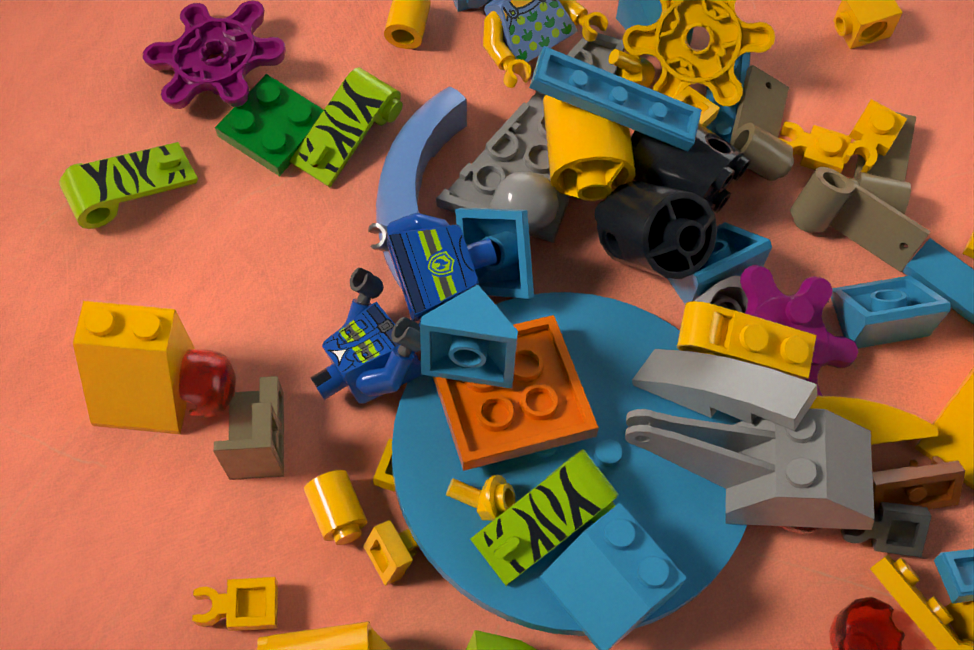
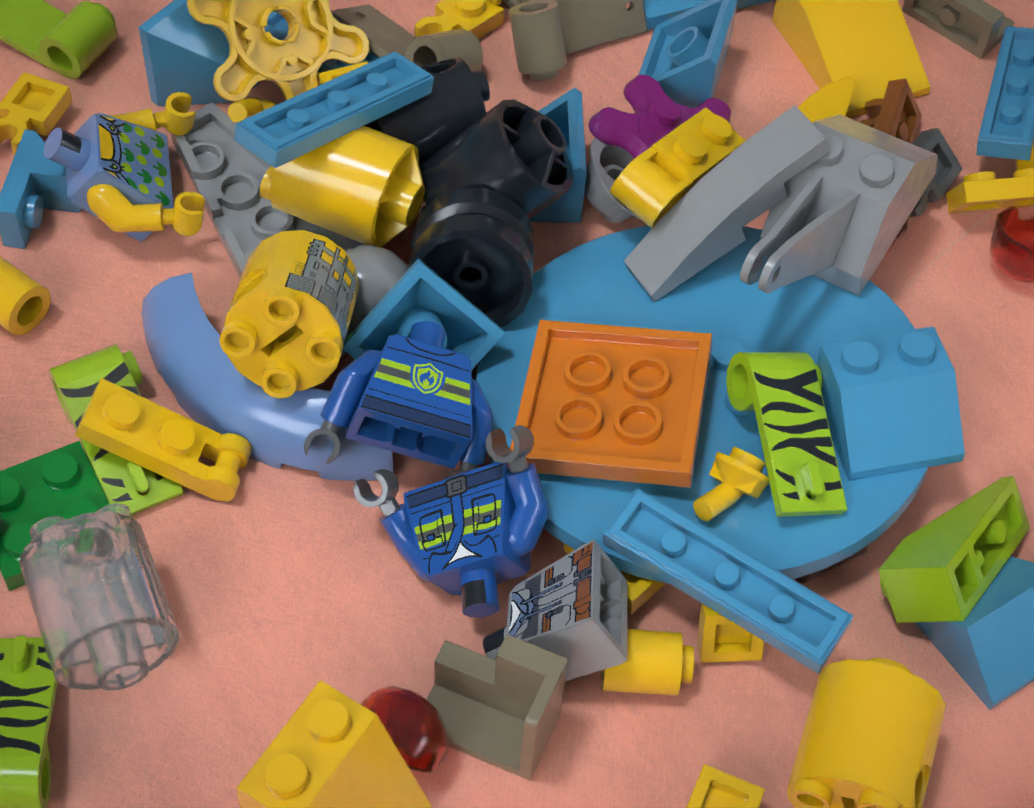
camera: 65 degrees left, 10 degrees down
(210, 177) = (98, 599): none -> clear cylinder
(332, 442) = (571, 610): none -> light grey torso
(344, 151) = (163, 441): none -> yellow plate
(403, 529) = (728, 580): none -> dark azure tile
(451, 162) = (291, 312): none -> yellow cylinder
(469, 341) = (565, 377): dark azure slope -> none
(577, 249) = (479, 248): none -> black wheel

